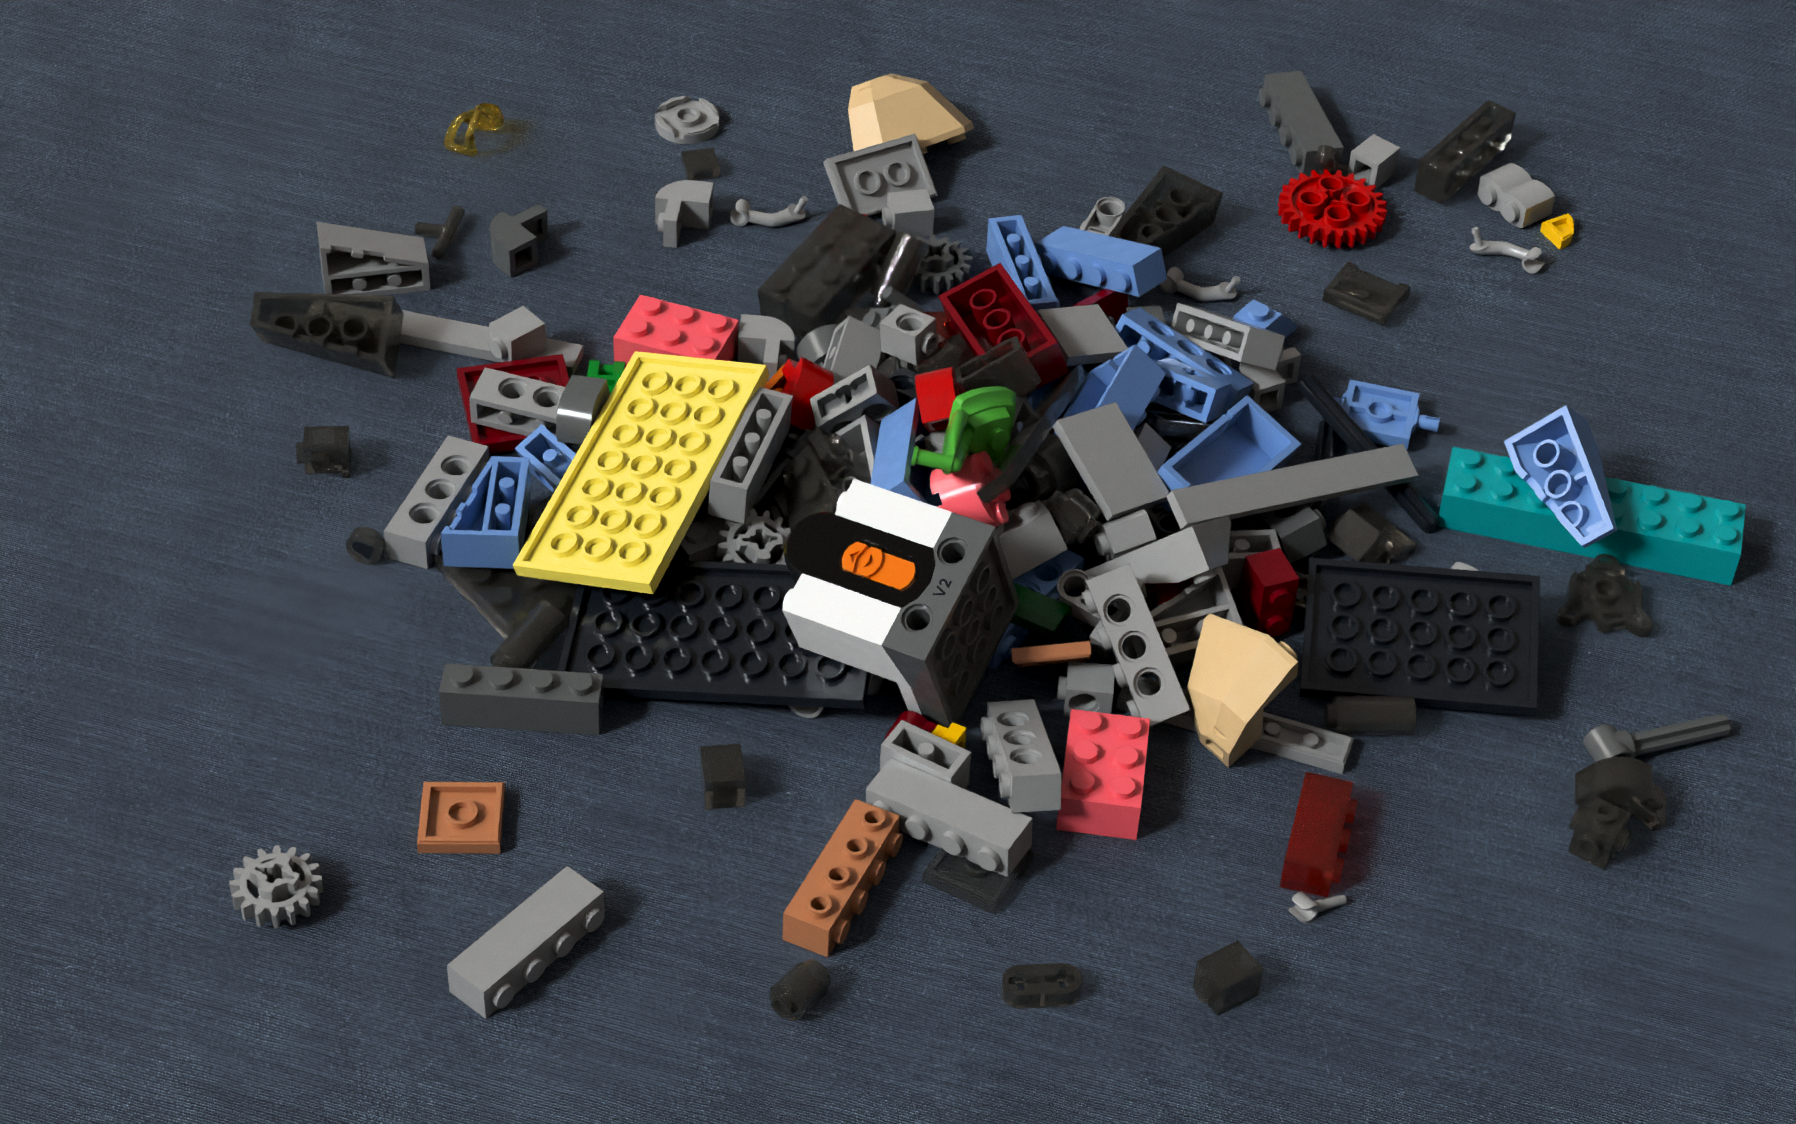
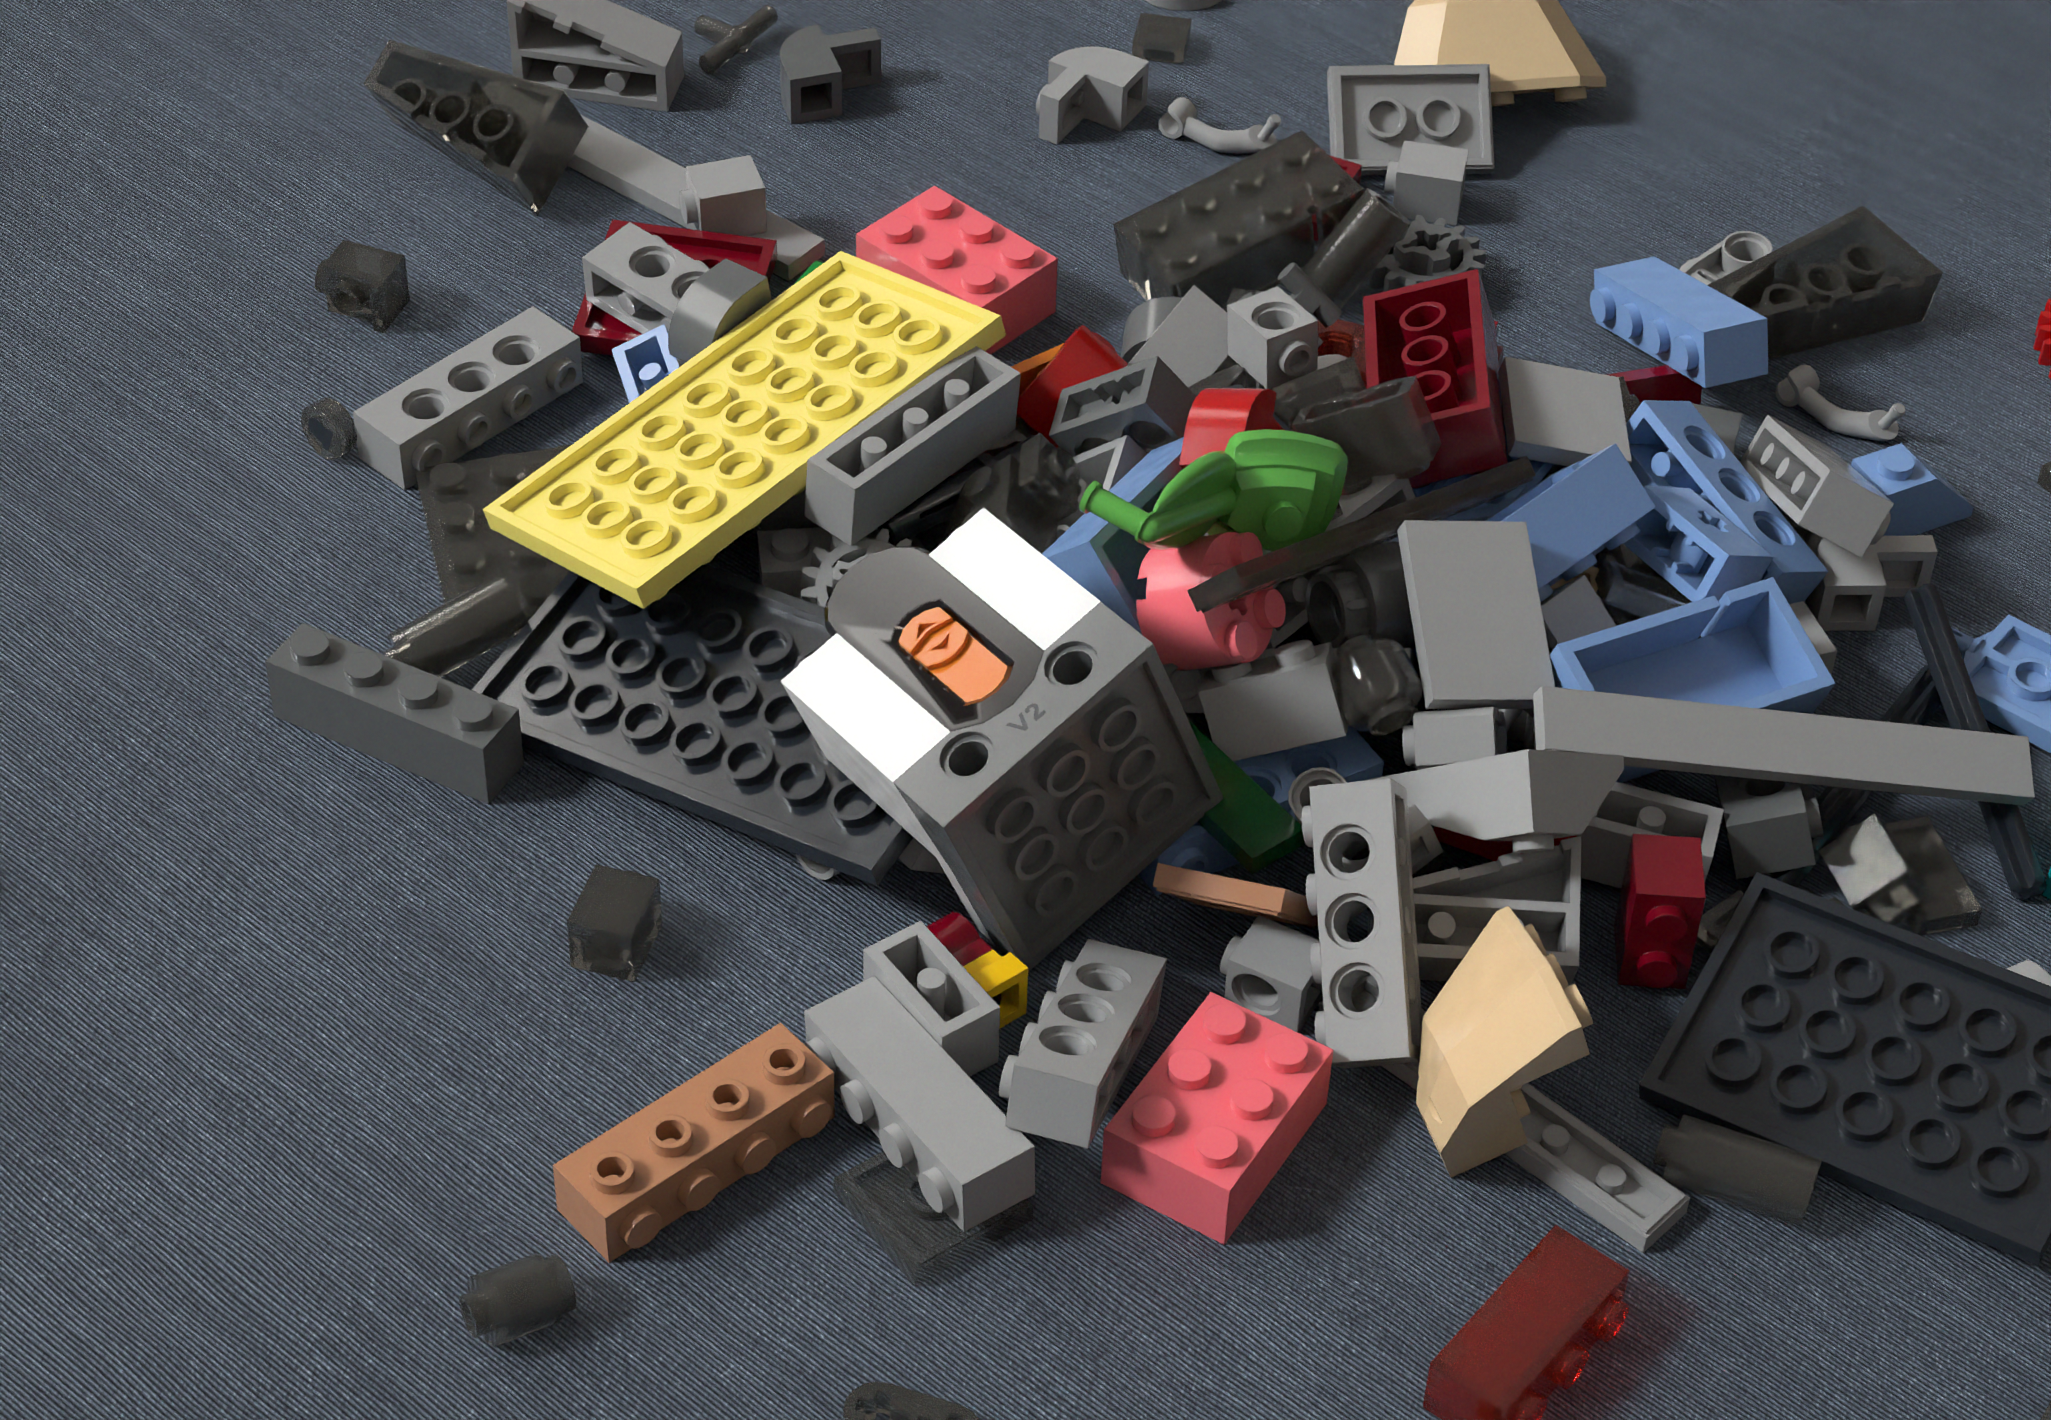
camera: 25 degrees right, 0 degrees up
(461, 817) = (204, 860): nougat tile -> none
(493, 518) = (507, 430): medium blue wedge -> none
(526, 942) = (159, 1076): light grey brick -> none
(765, 342) = (1088, 295): light grey brick -> none
(1014, 248) = (1550, 292): medium blue brick -> none

